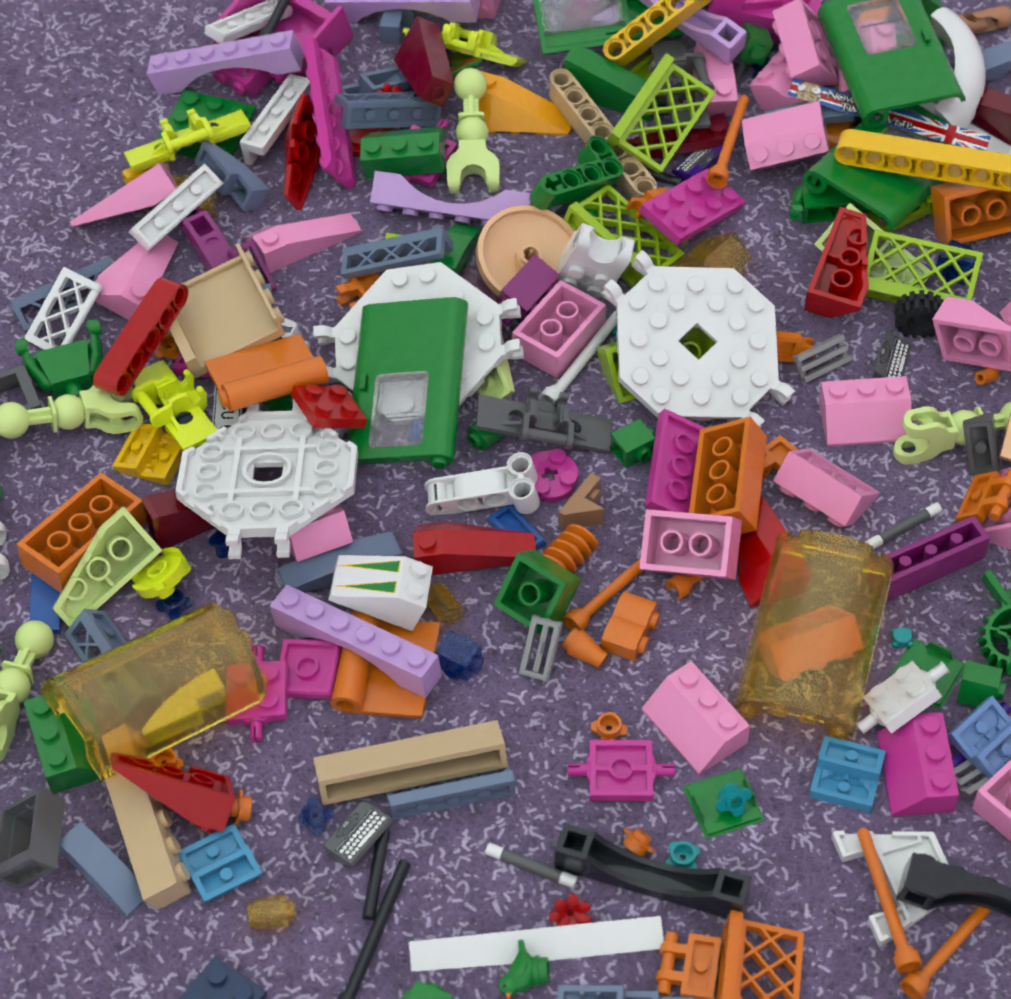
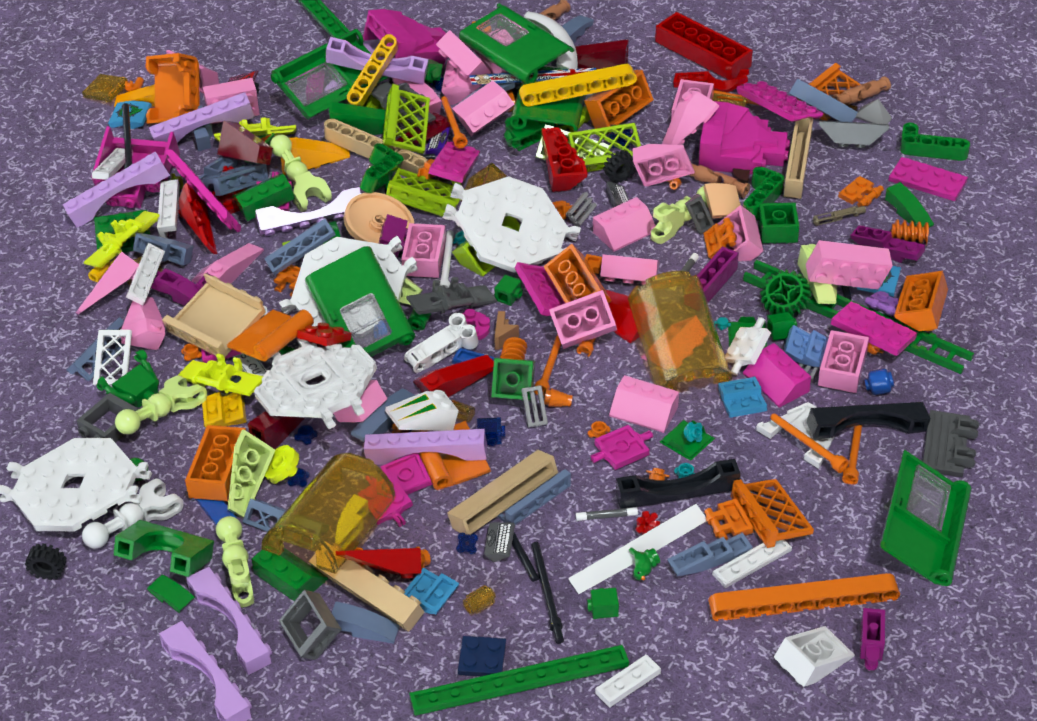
camera: 30 degrees left, 10 degrees down
(140, 337) = (179, 345): red beam -> none
(593, 261) = (424, 203): white brick -> none
(629, 626) = (574, 377): orange brick -> none

